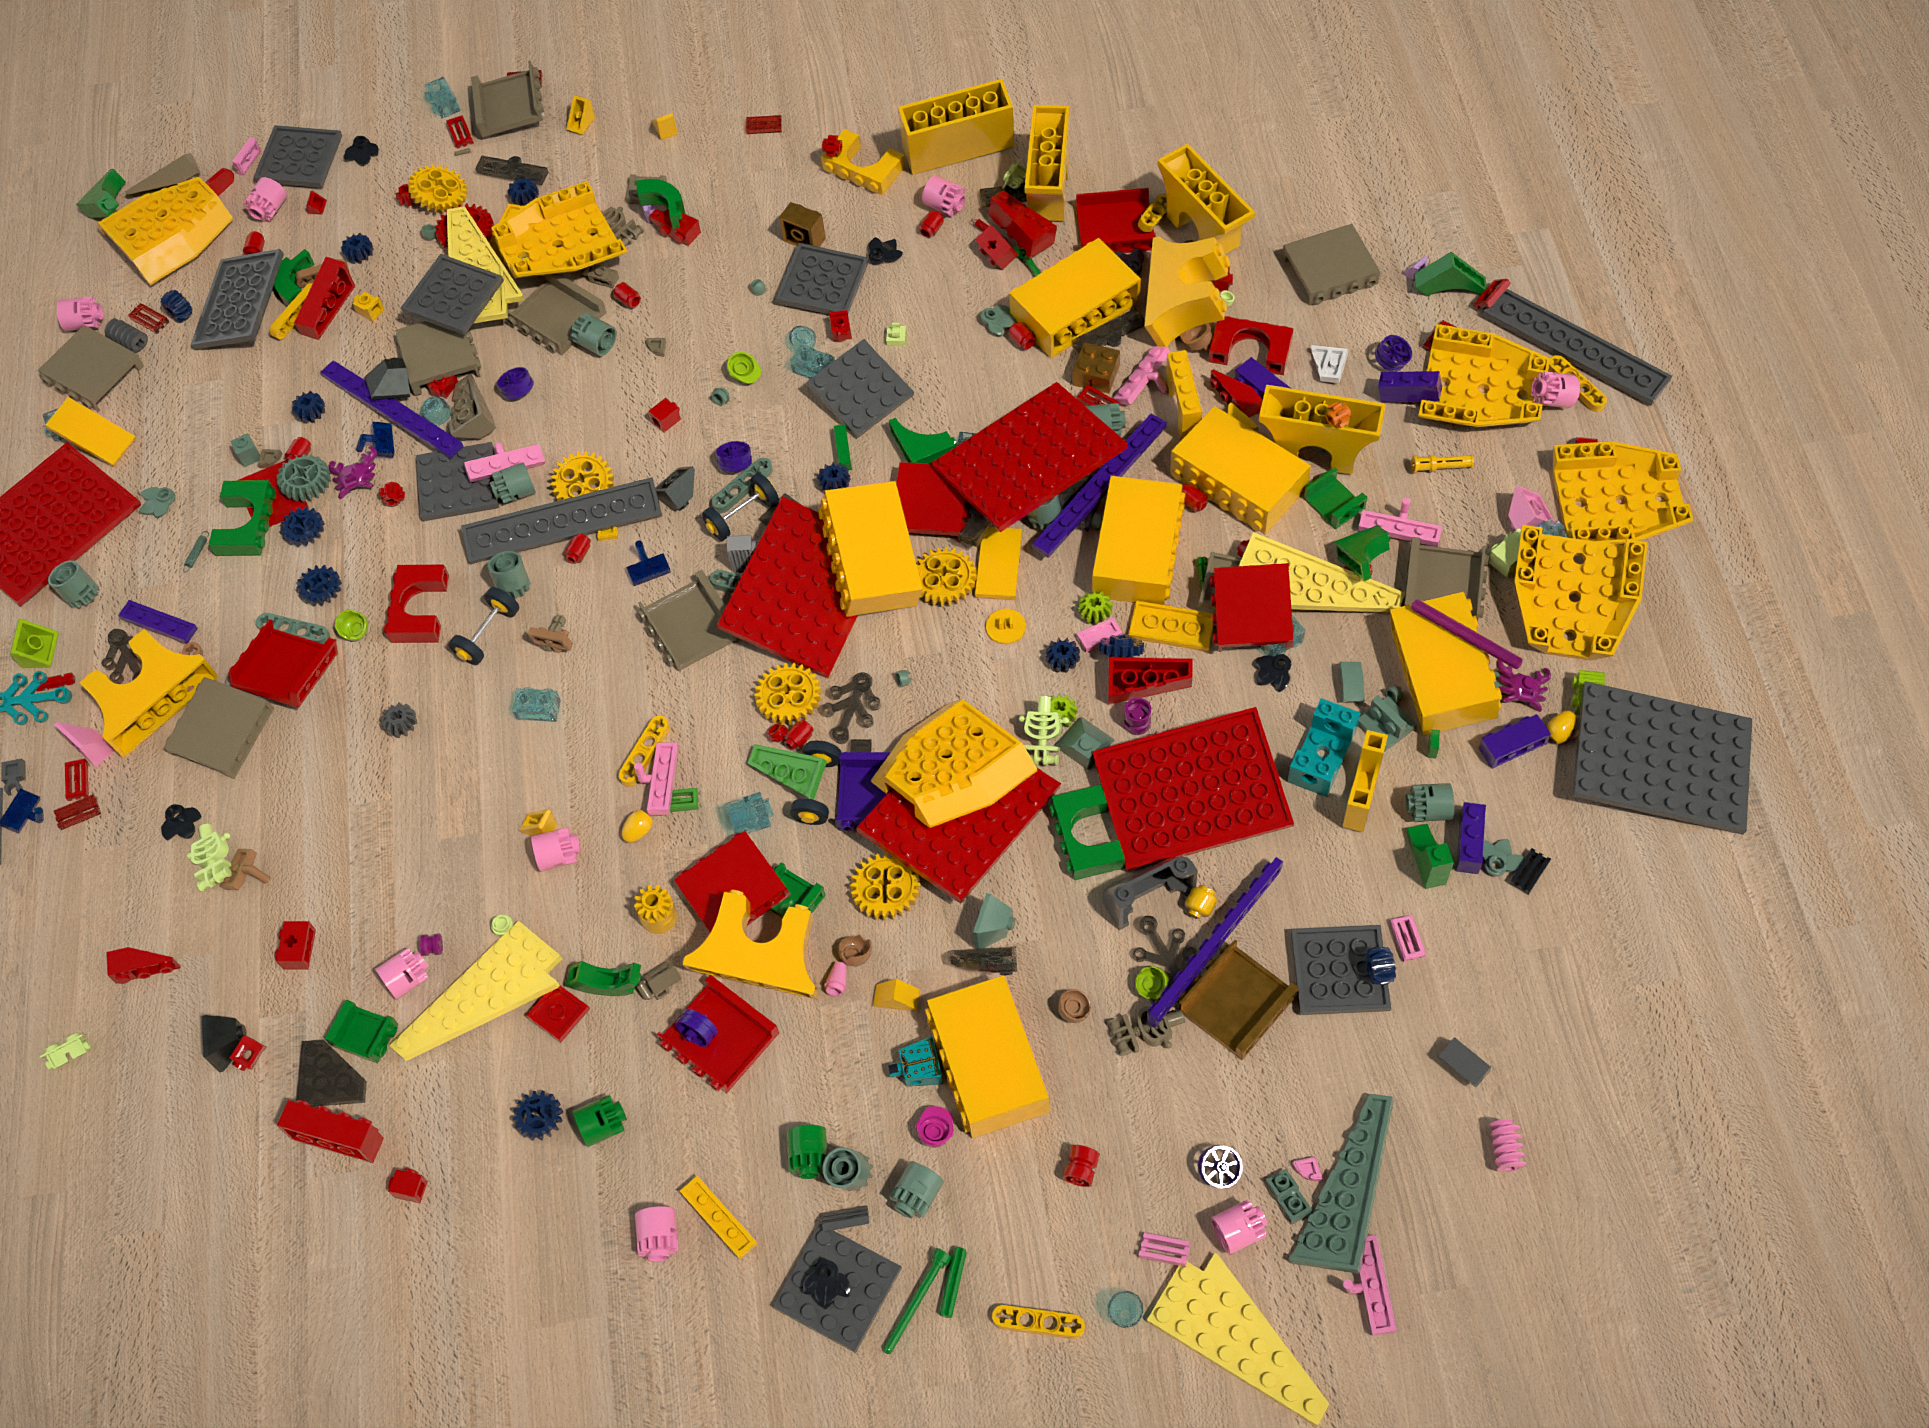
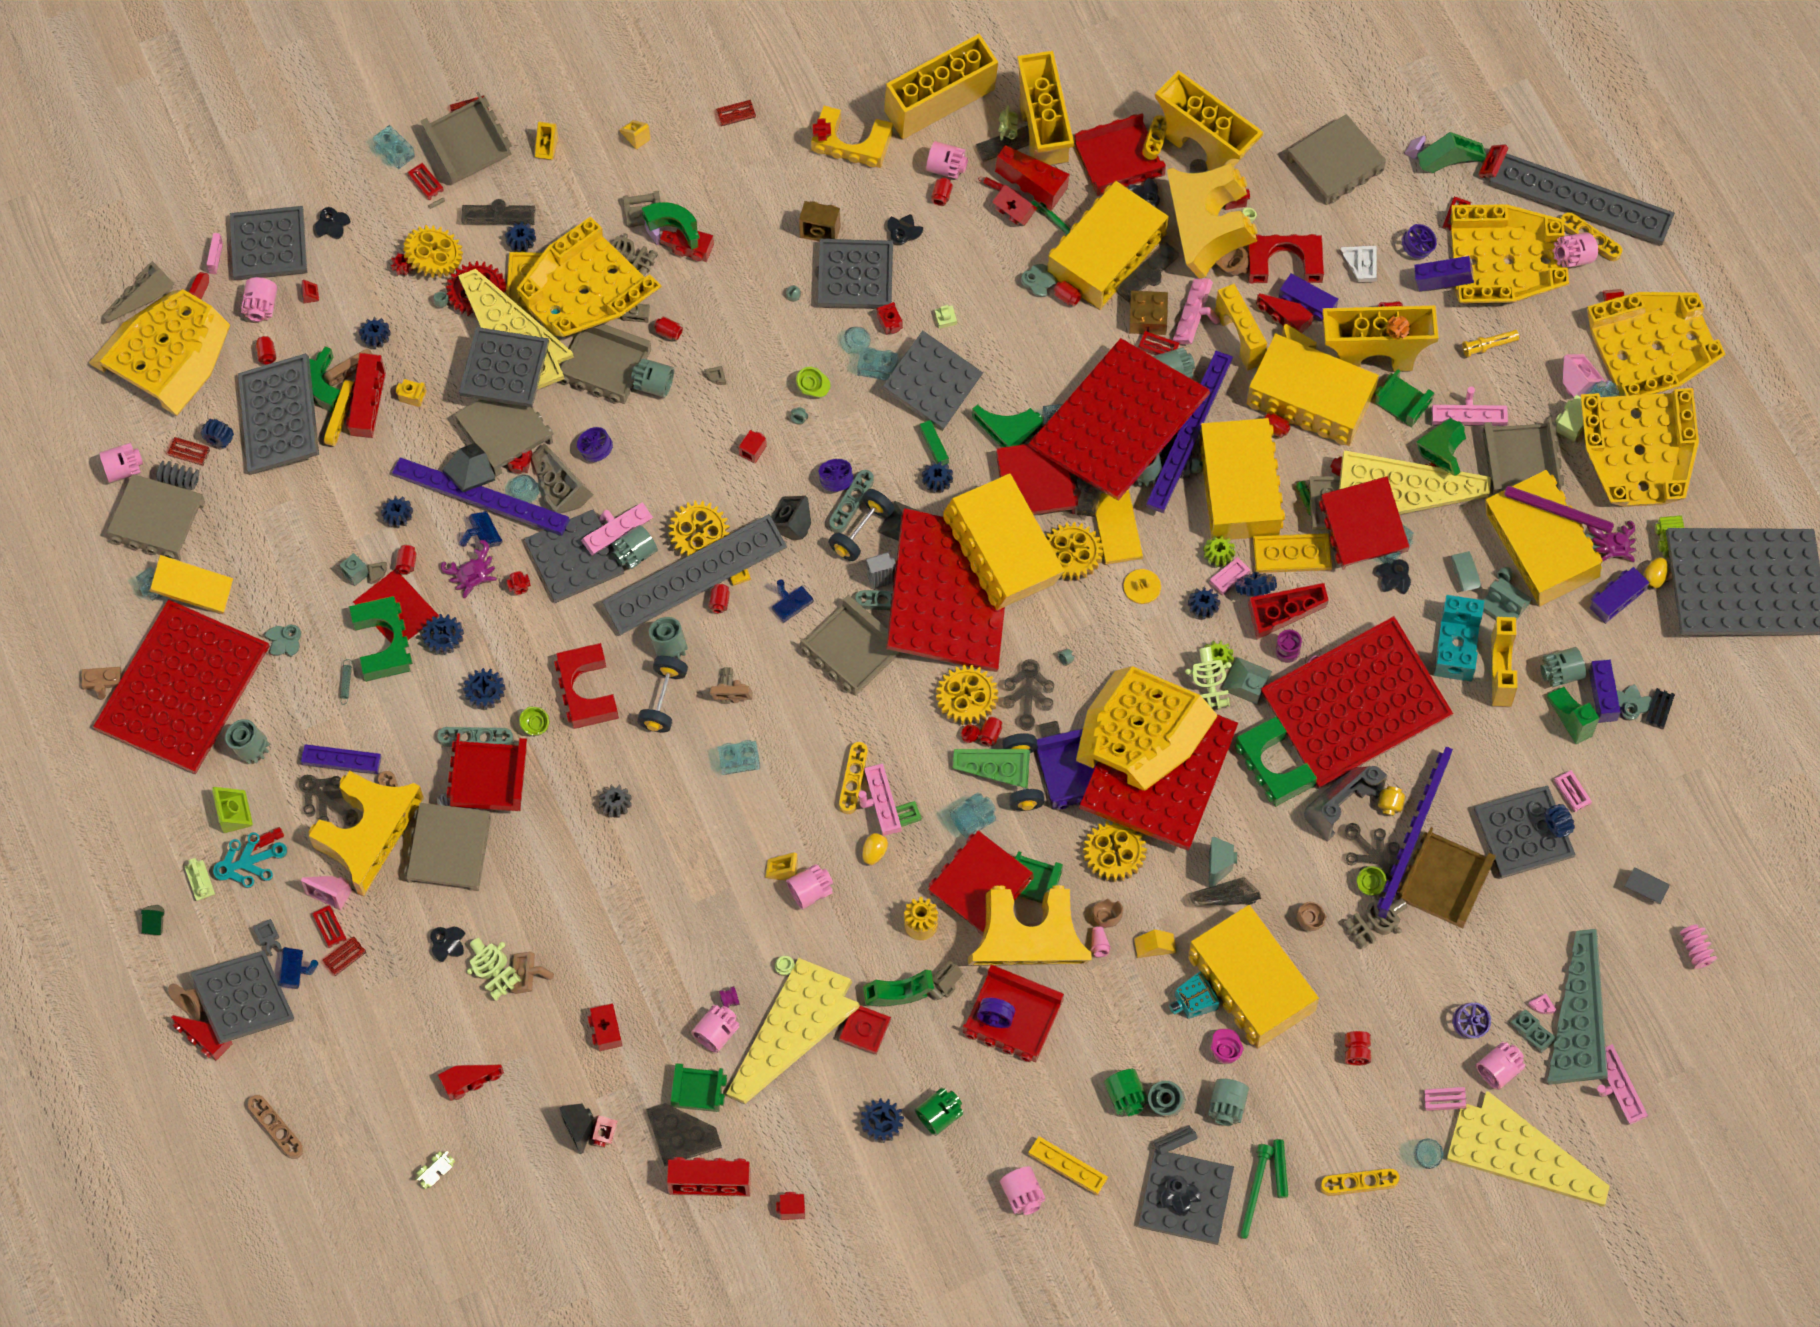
camera: 20 degrees left, 5 degrees up
(101, 197) = (81, 333): green arch -> none
(303, 478) = (423, 595): sand green gear -> none
(1433, 743) = (1551, 613): green tile -> none

